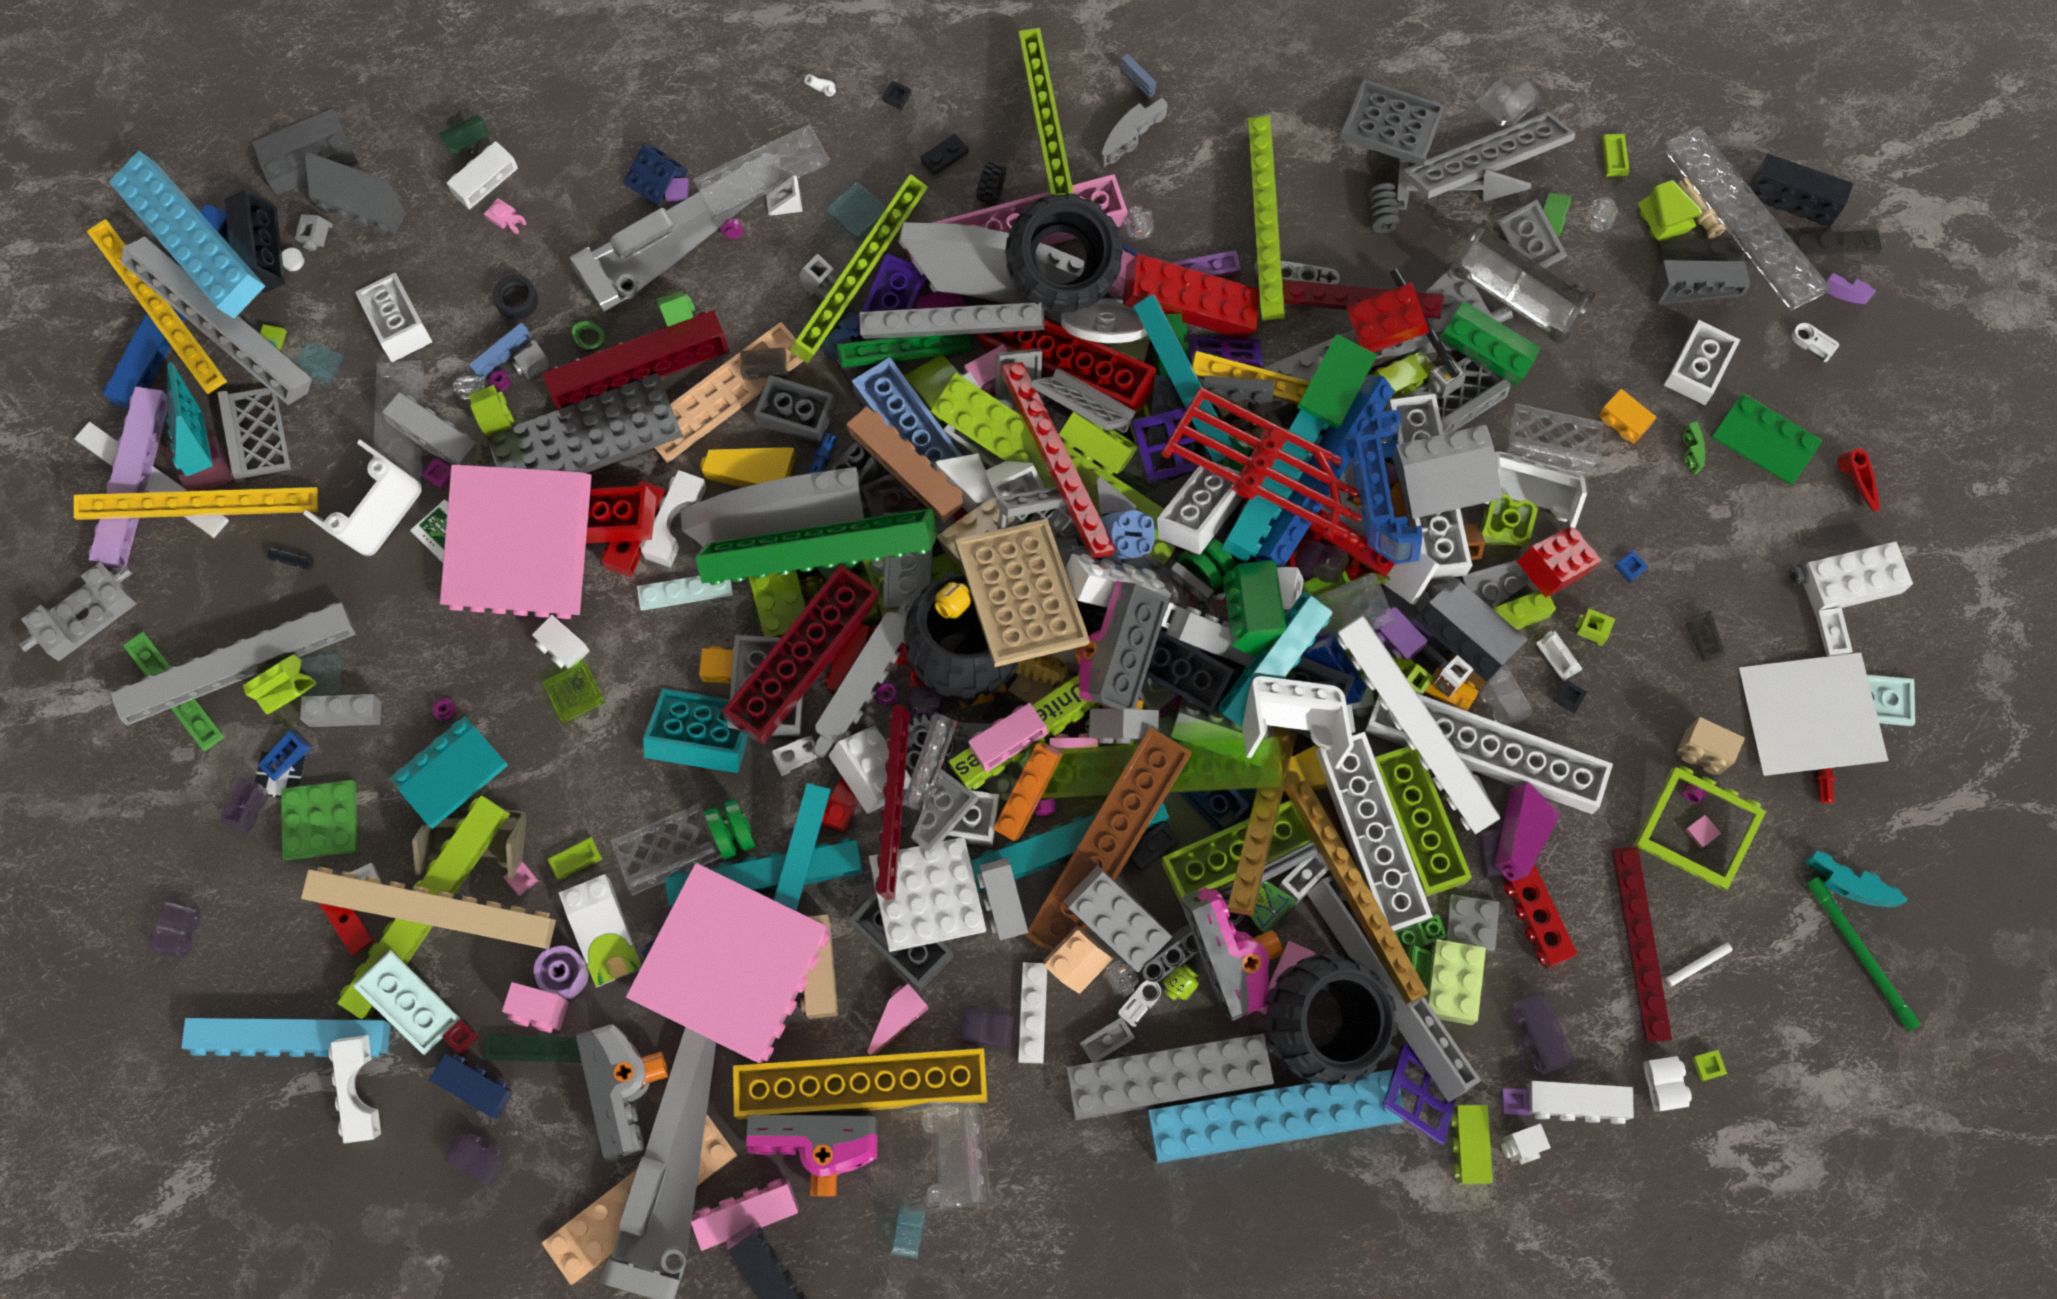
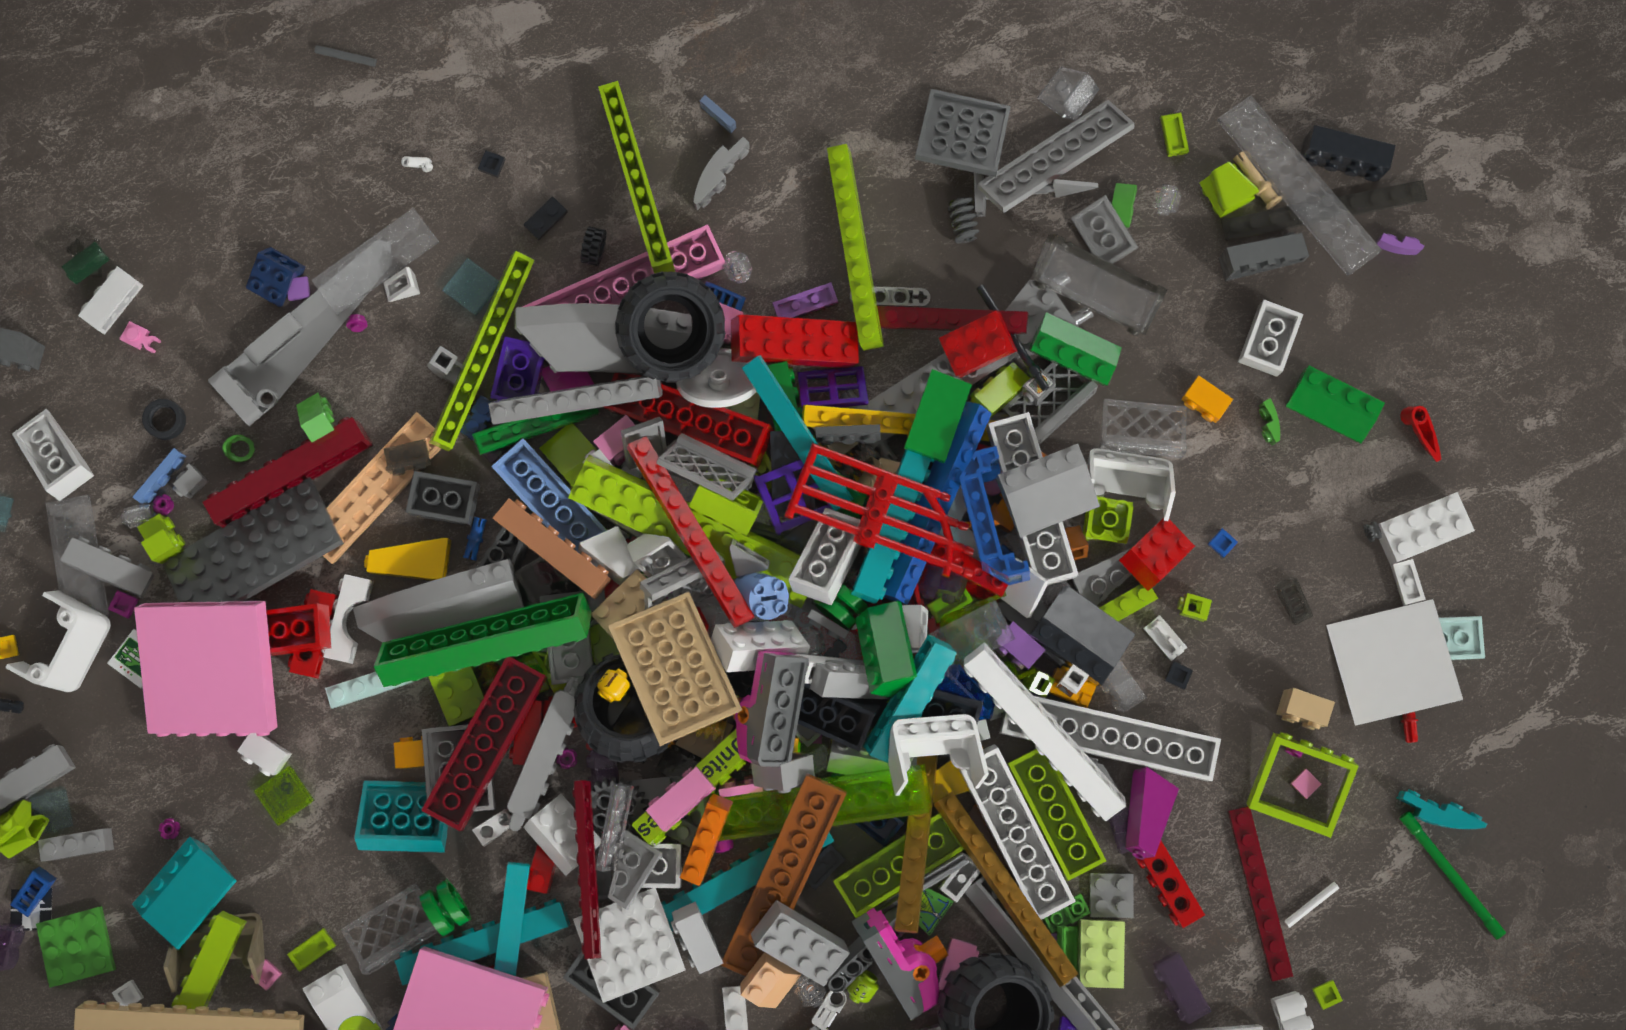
camera: 10 degrees left, 10 degrees up
(1817, 341) = (1375, 300): white piece -> none

